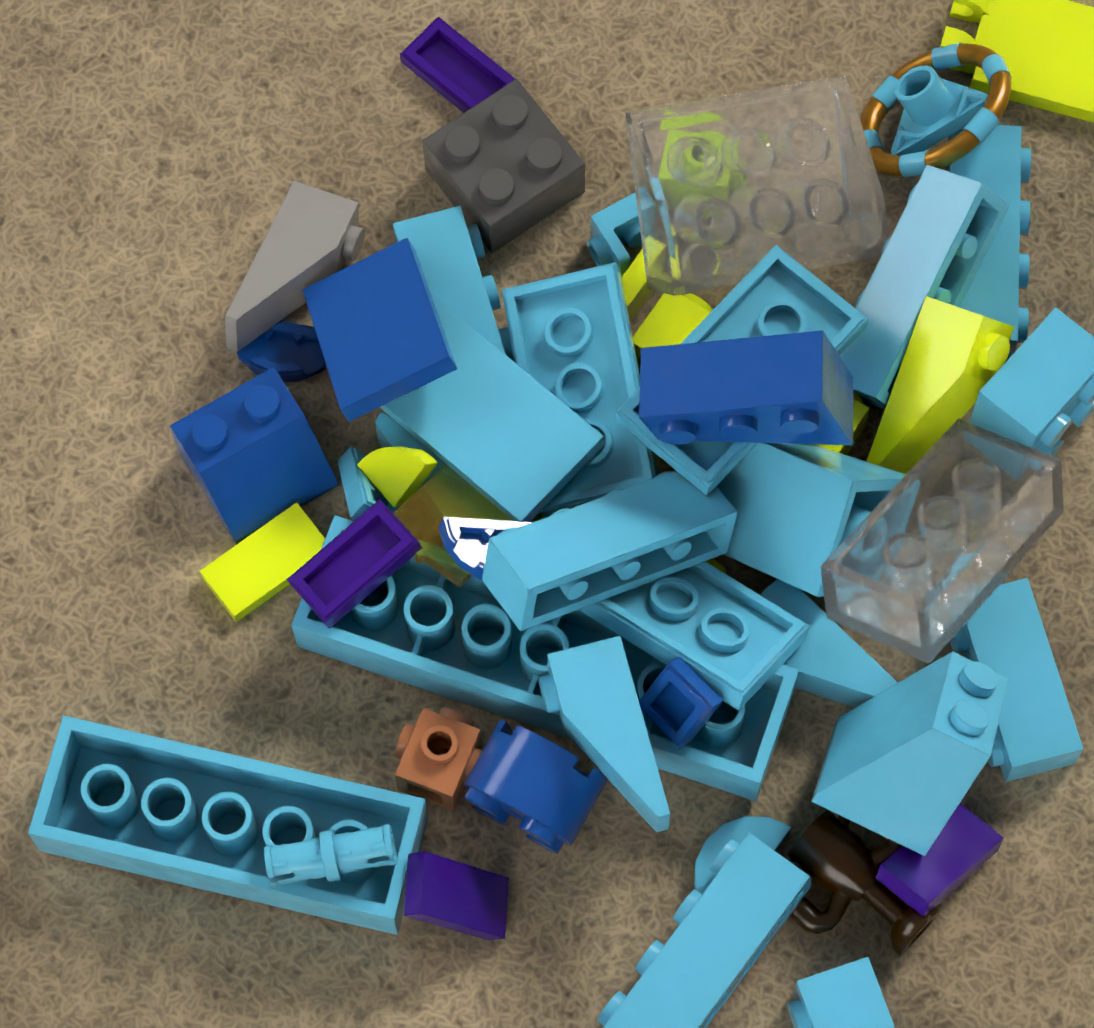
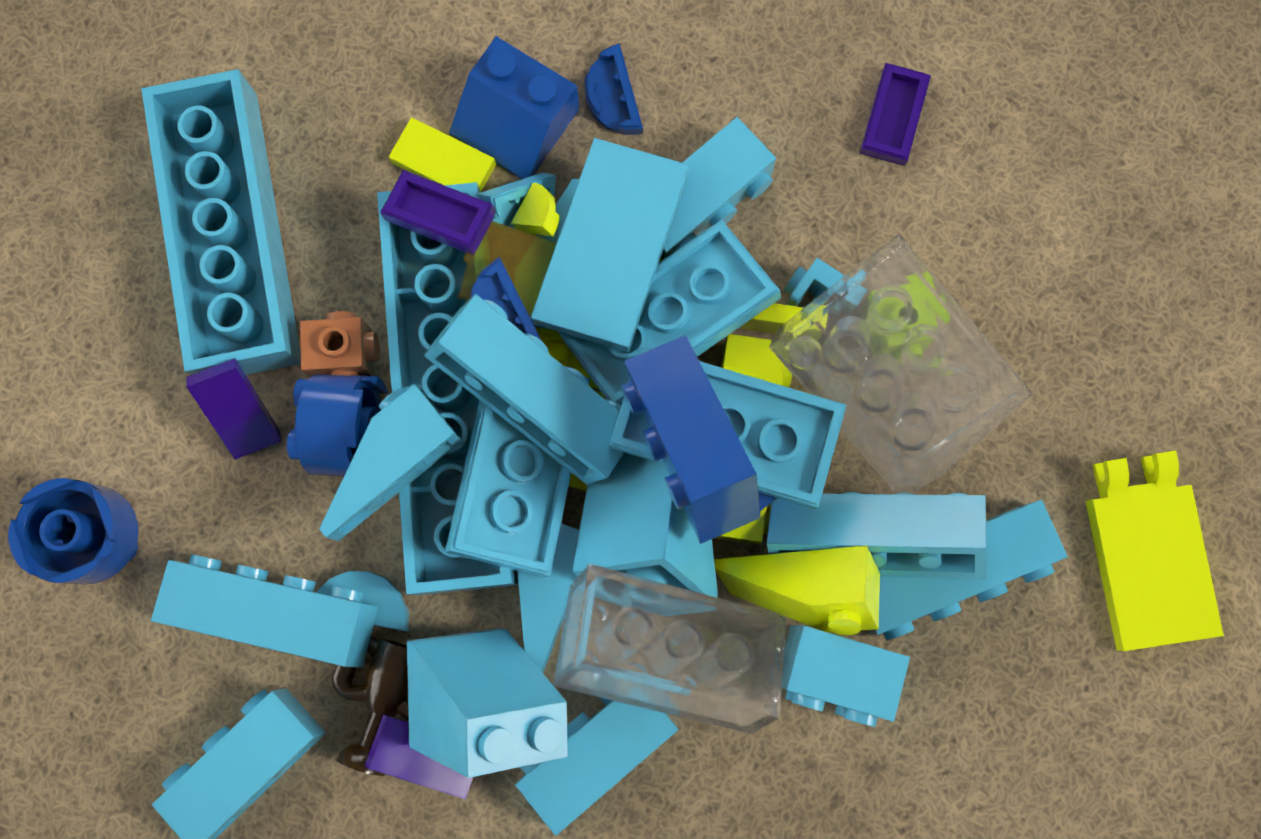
camera: 65 degrees right, 10 degrees up
(303, 245) = (678, 64): light grey slope -> none
(330, 855) = (202, 301): medium azure pin -> none
(379, 330) = (635, 143): blue tile -> none
(504, 165) = (829, 176): dark grey brick -> none
(679, 702) = (432, 503): blue tile -> none
(936, 109) = (1045, 481): medium azure piece -> none

